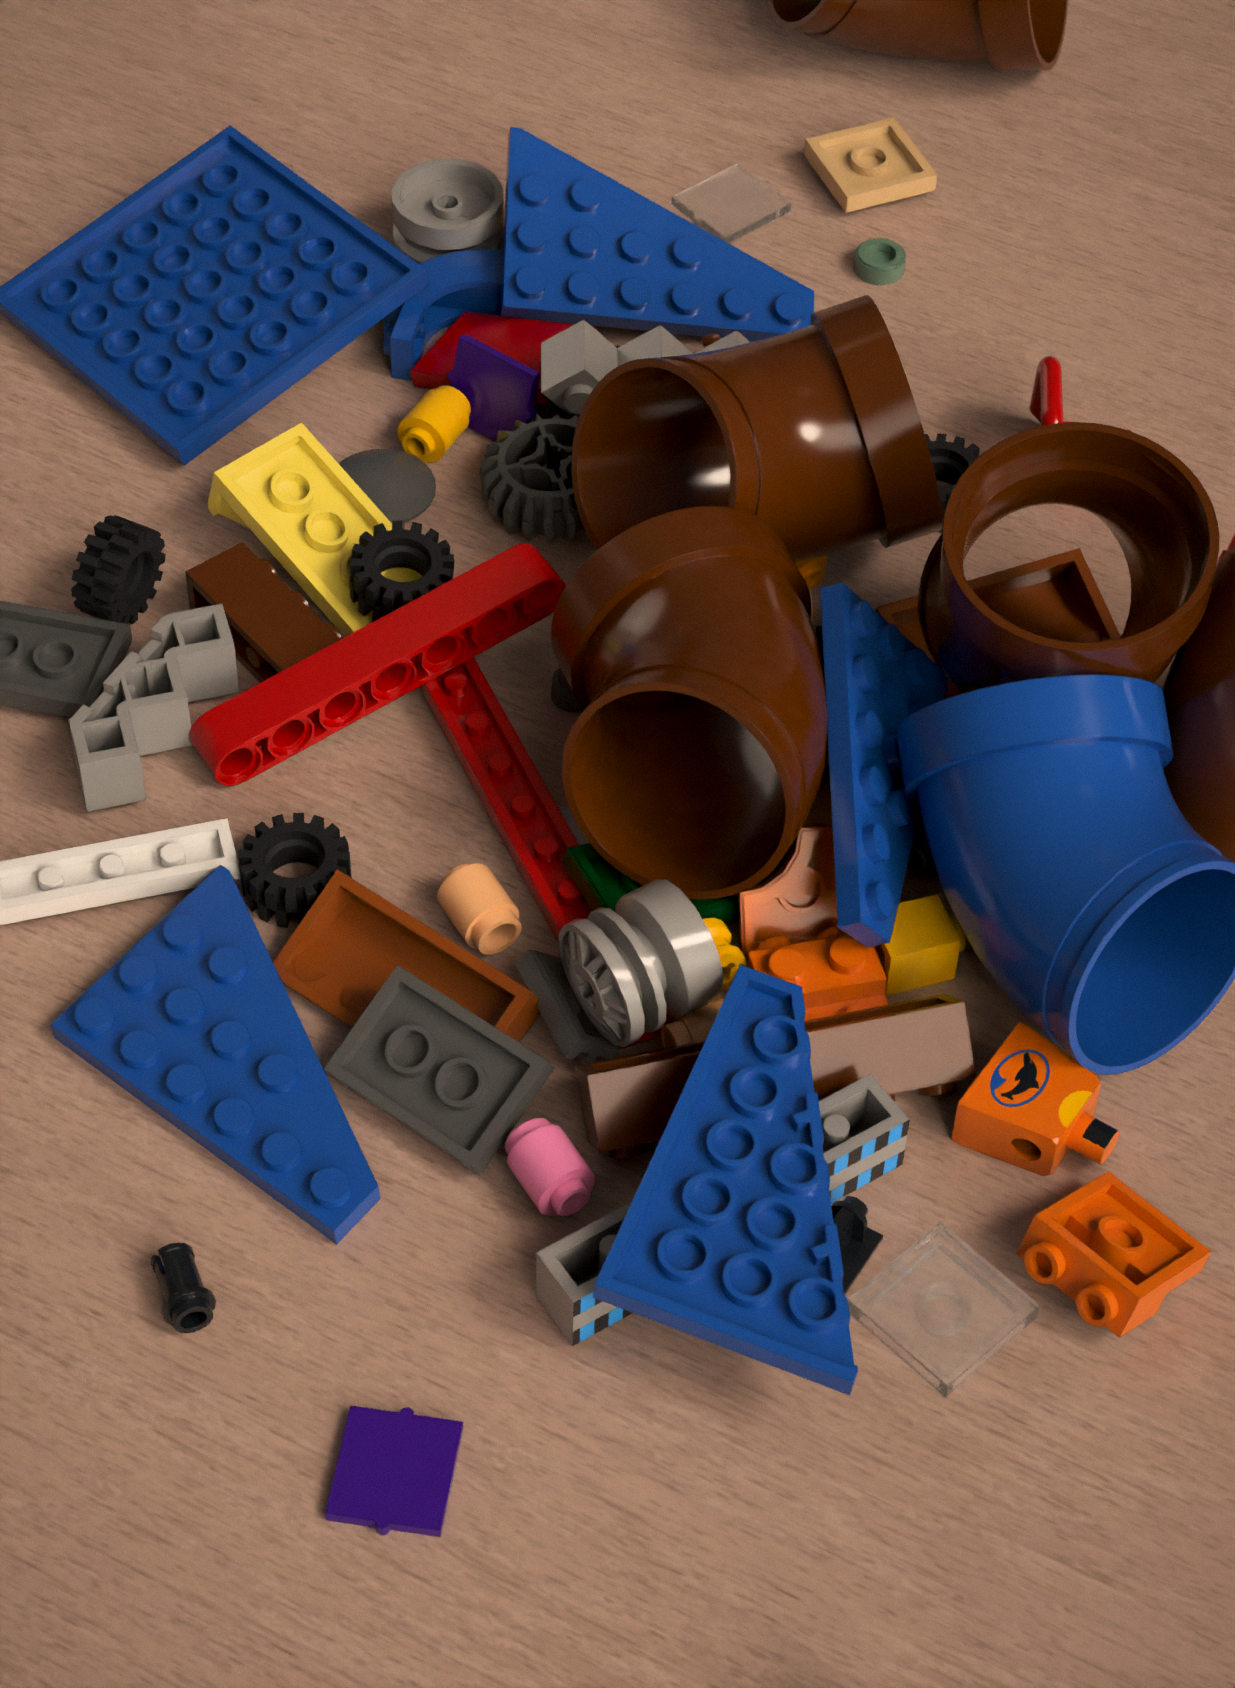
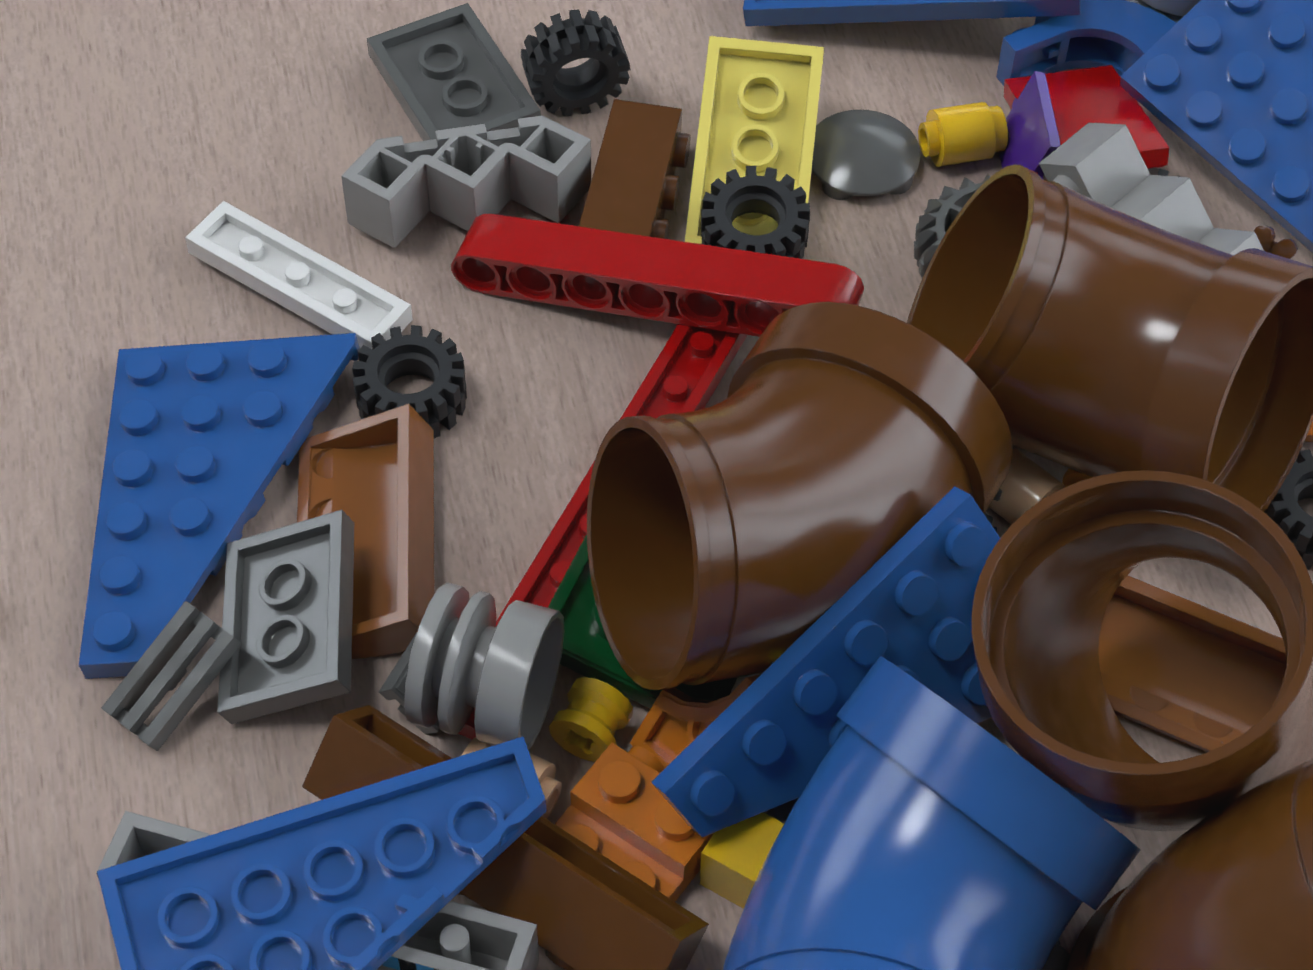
camera: 50 degrees right, 5 degrees up
(404, 1122) = (162, 670): none -> dark grey tile
(479, 908) = (486, 526): light nougat brick -> none
(549, 1167) = (264, 764): bright pink brick -> none

